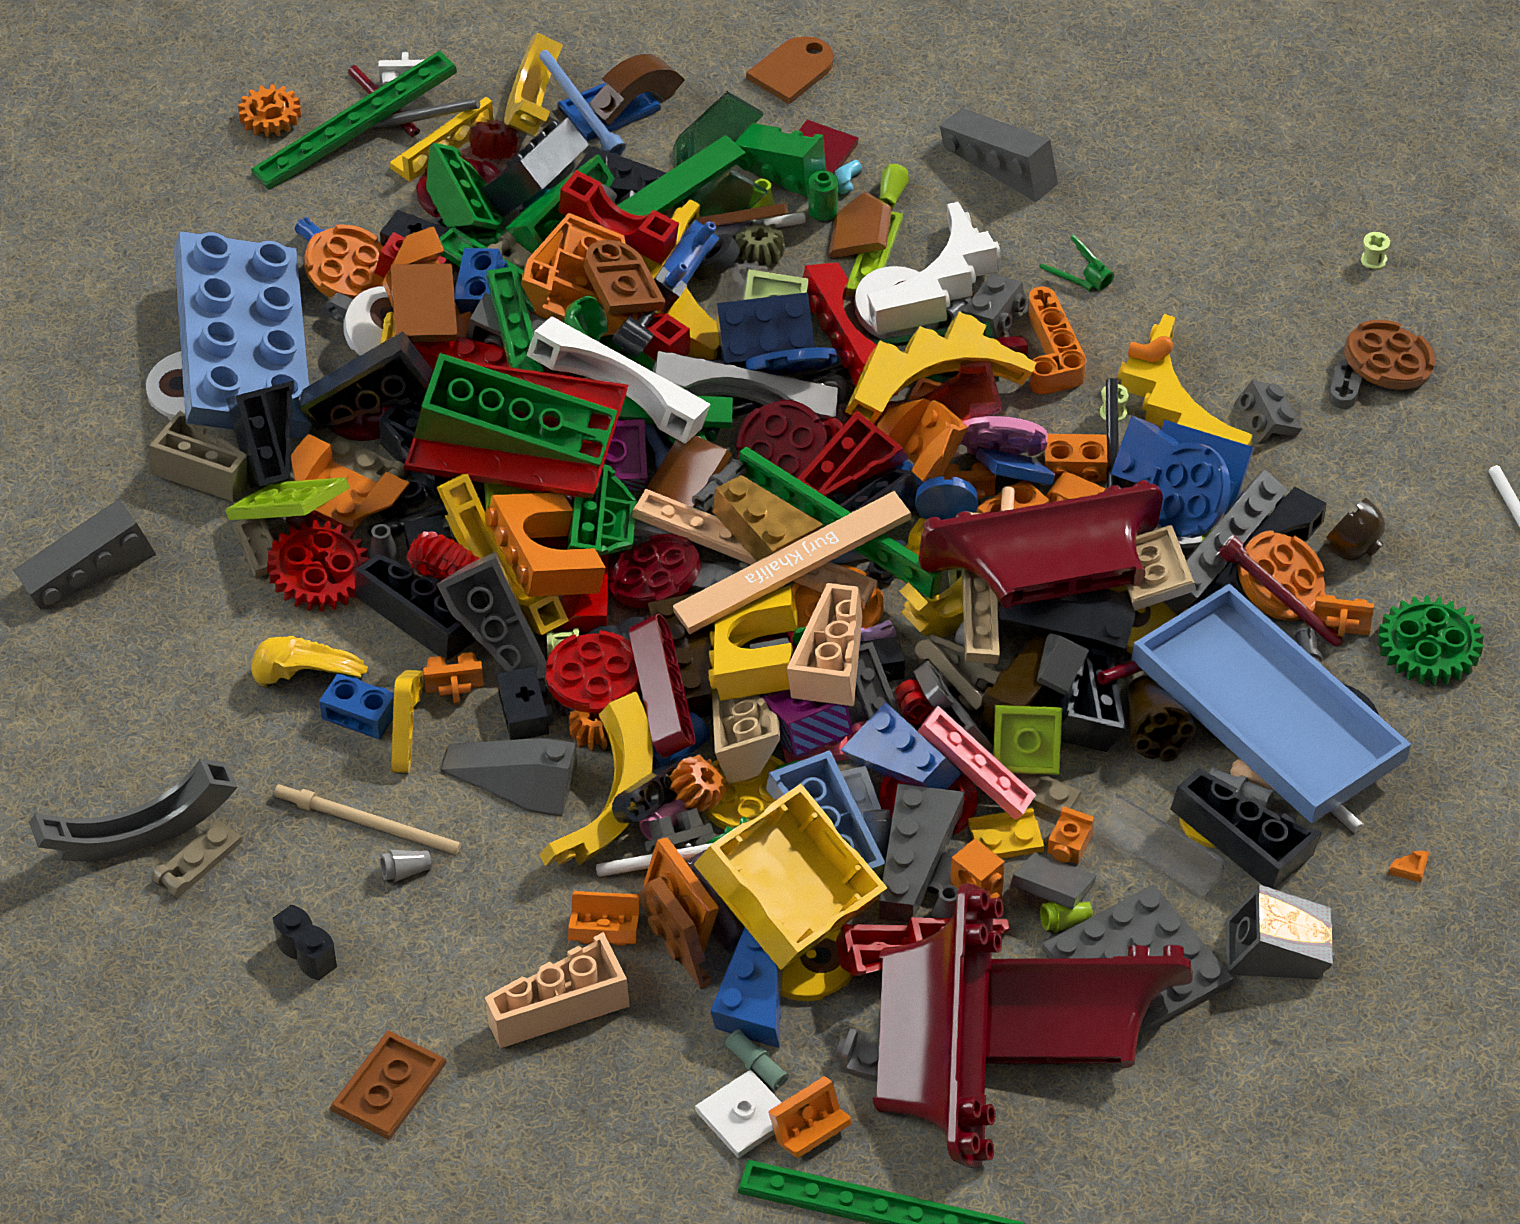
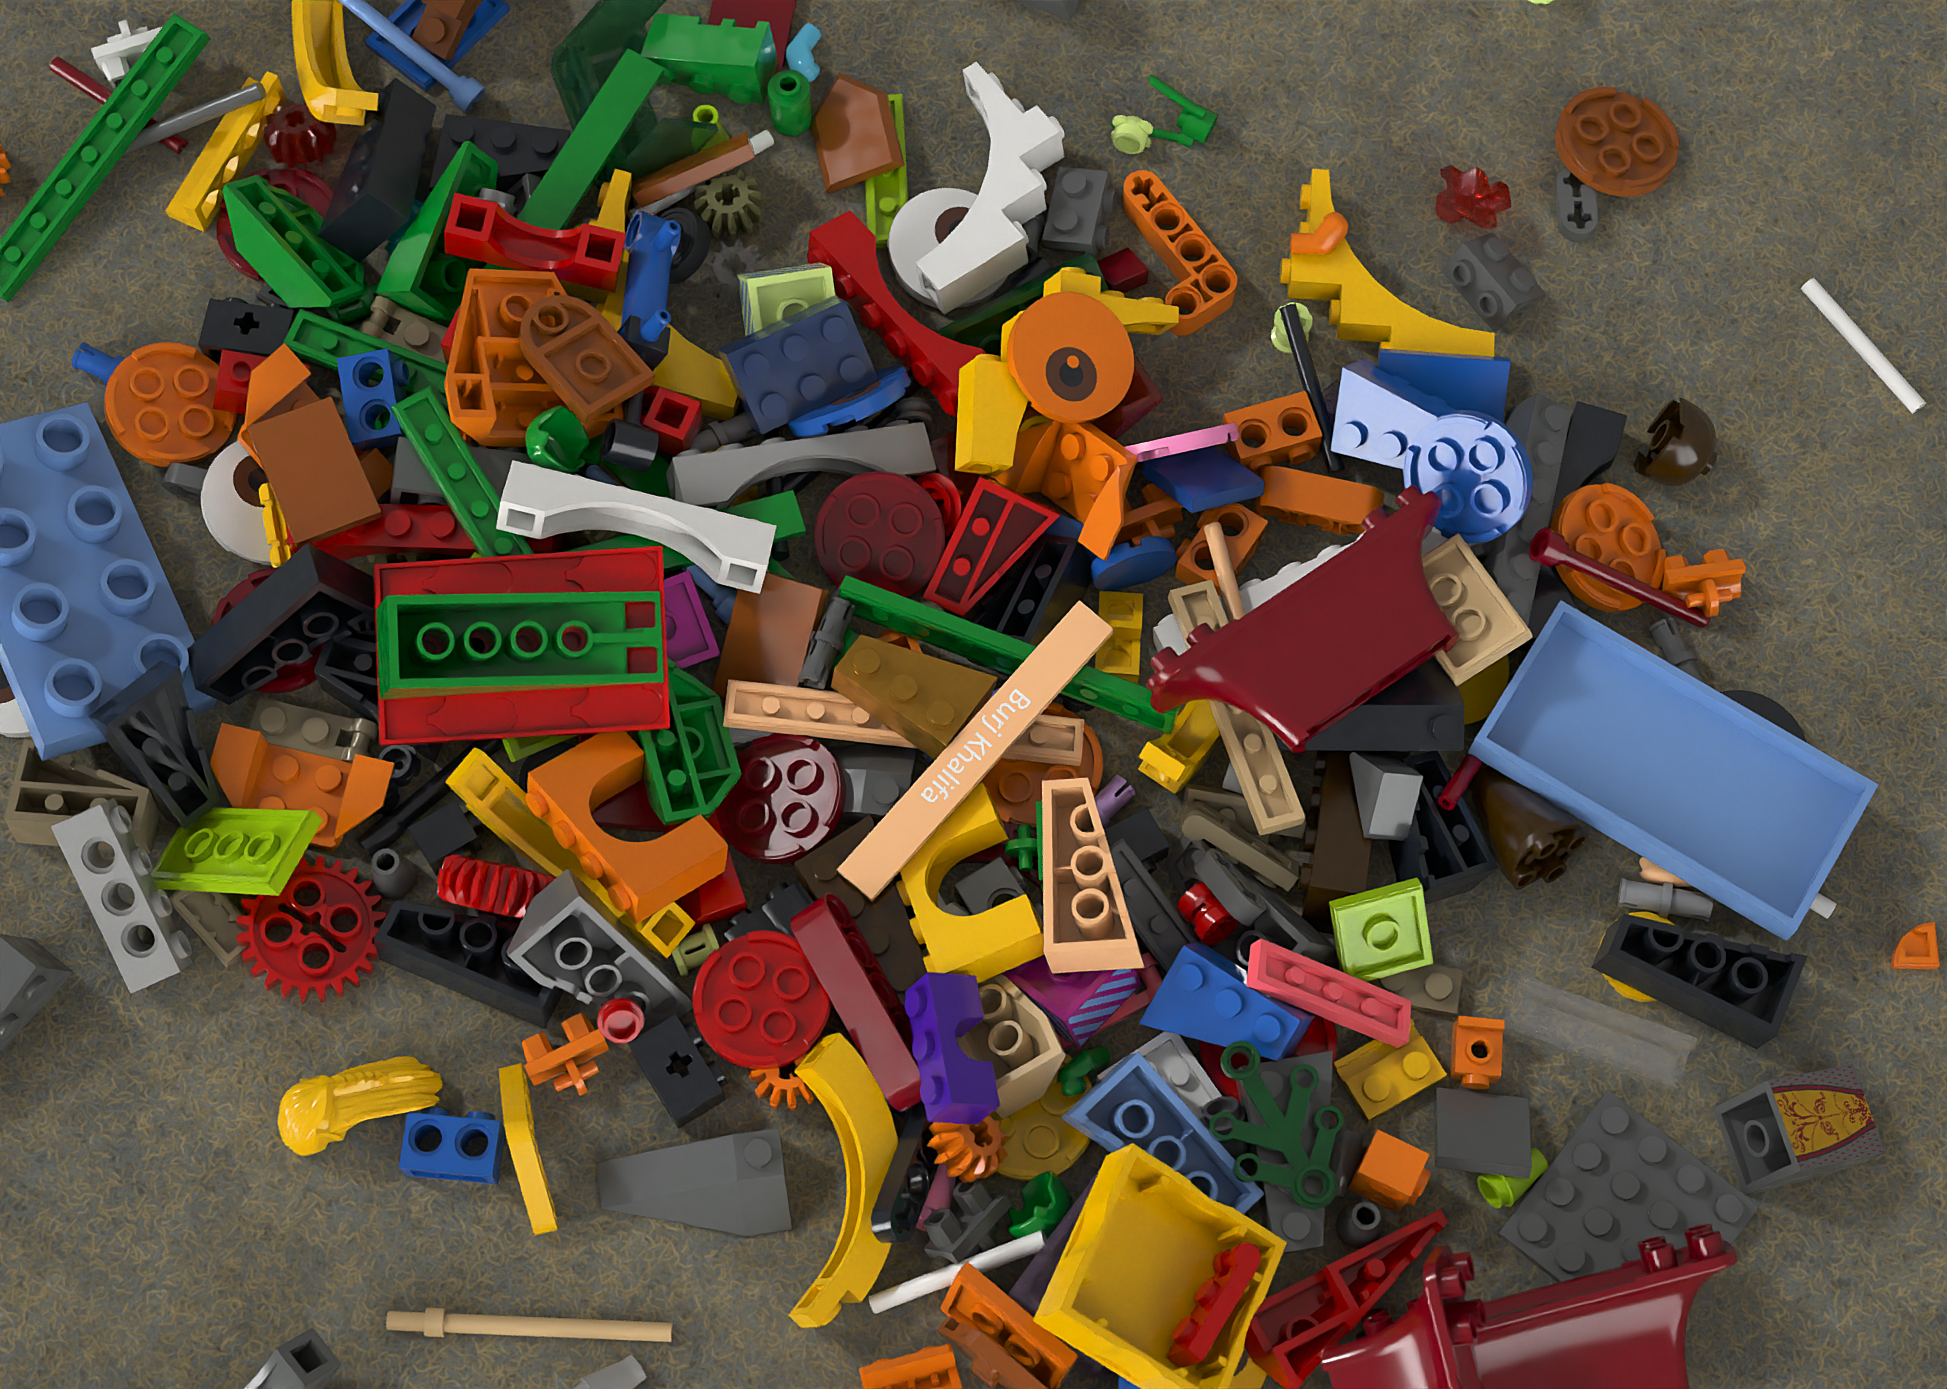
camera: 20 degrees left, 20 degrees up
(193, 463) = (116, 919): none -> light grey brick
(496, 658) = (620, 1020): none -> red plate
(706, 703) = (951, 1082): none -> dark purple arch
(822, 903) = (1214, 1304): none -> red plate
(893, 182) = (872, 50): lime cone -> none
(908, 822) = (1281, 1132): none -> dark green plant
(946, 361) = (1070, 357): none -> orange tile
(1049, 270) = (1131, 134): none -> yellowish green plate
(1265, 357) = (1471, 197): none -> clear red hips
(1430, 640) = (1857, 611): green gear -> none

